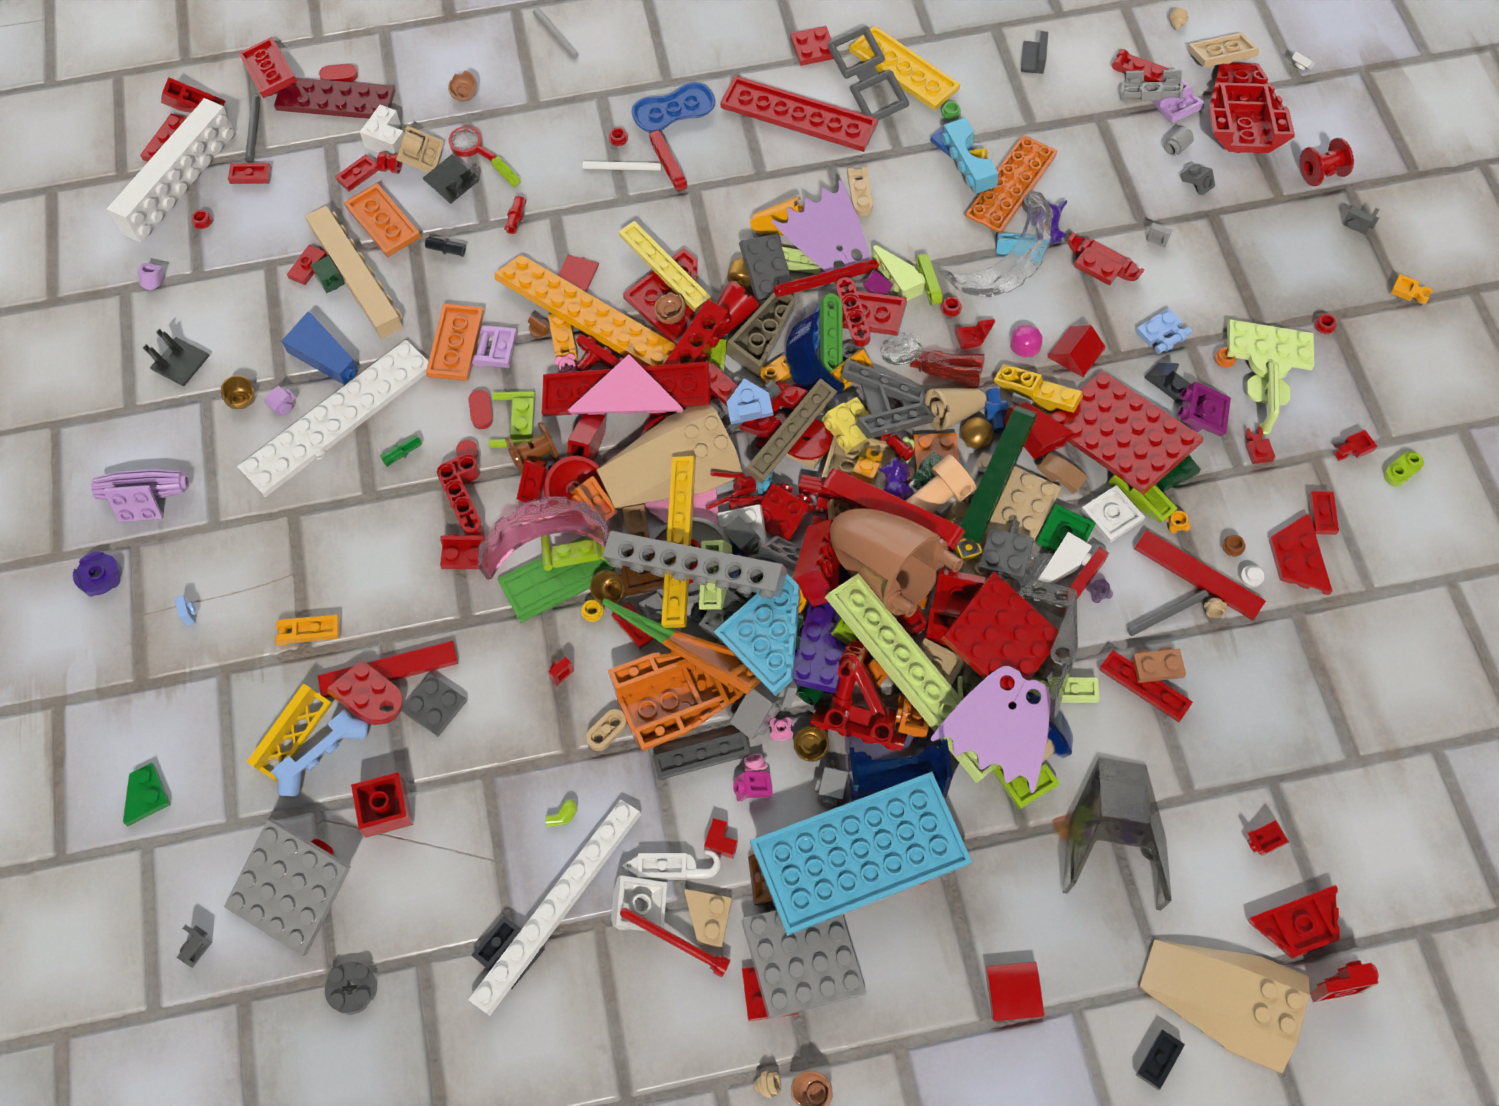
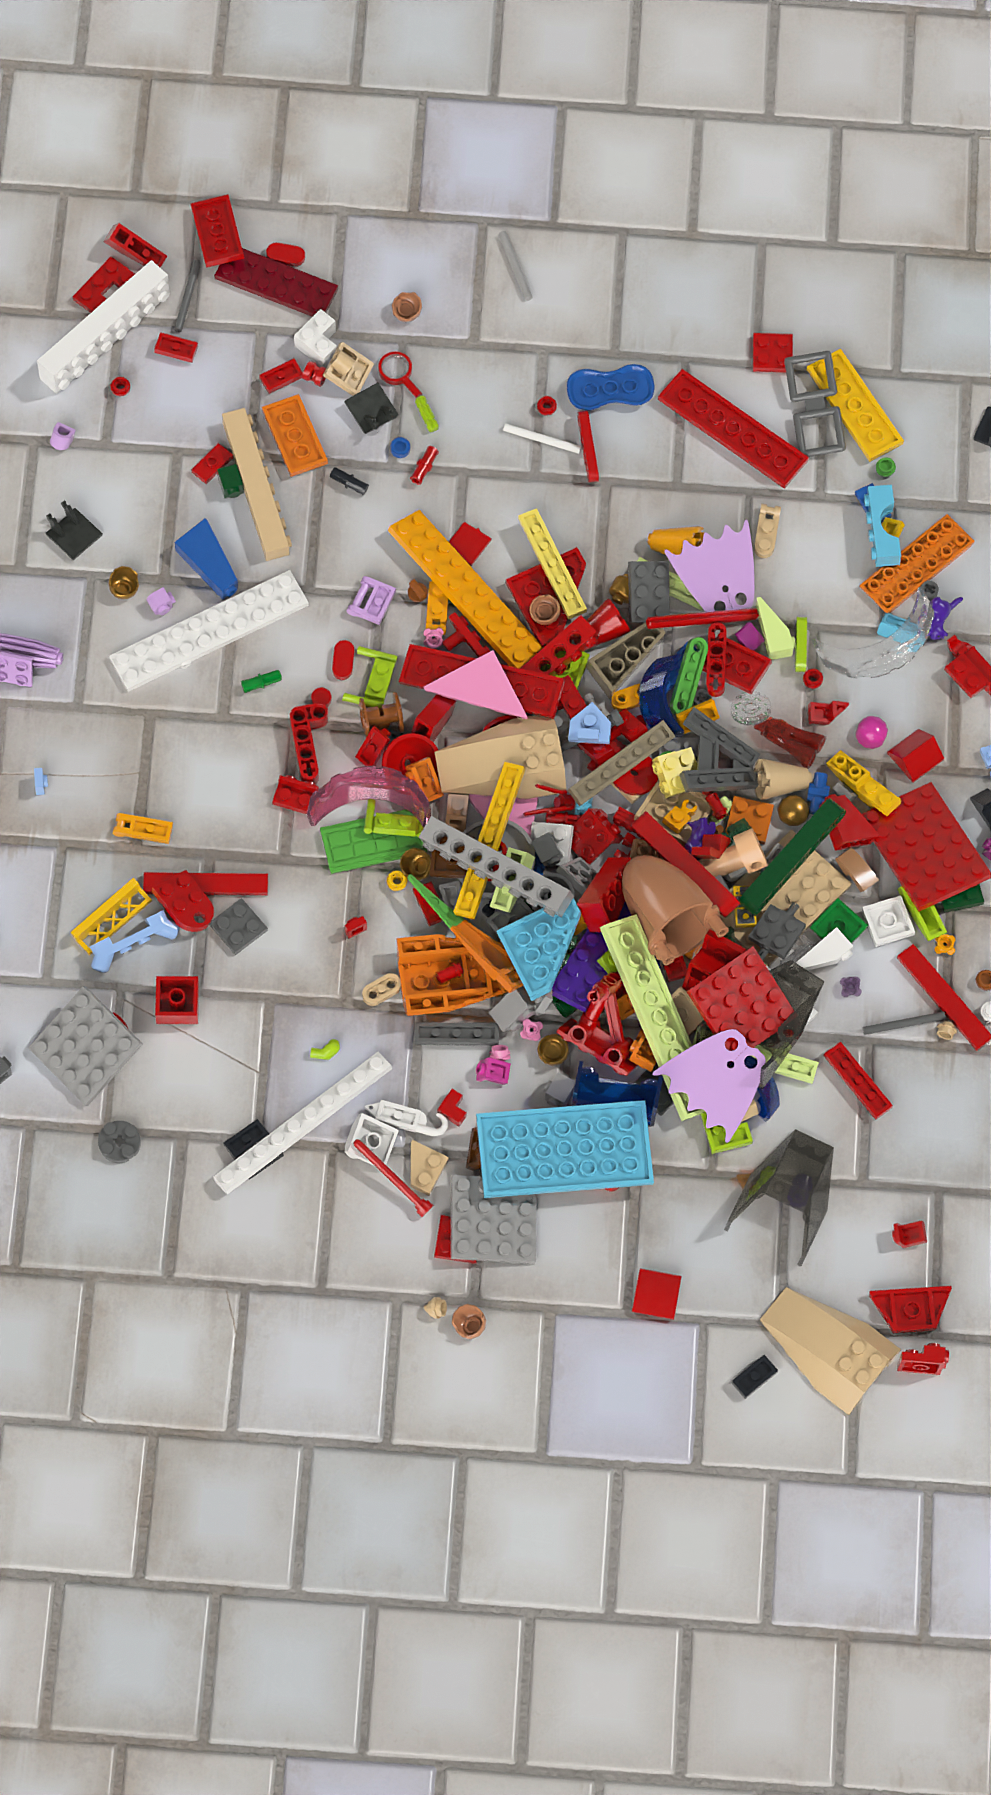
camera: 10 degrees right, 5 degrees up
(455, 342) = (335, 585): orange plate -> none
(488, 206) = (400, 447): none -> blue tile
(675, 691) = (449, 973): none -> red pin
(913, 484) = (712, 846): none -> red slope
(1089, 571) = (844, 969): red beam -> none
(1158, 665) = (874, 1065): nougat bracket -> none

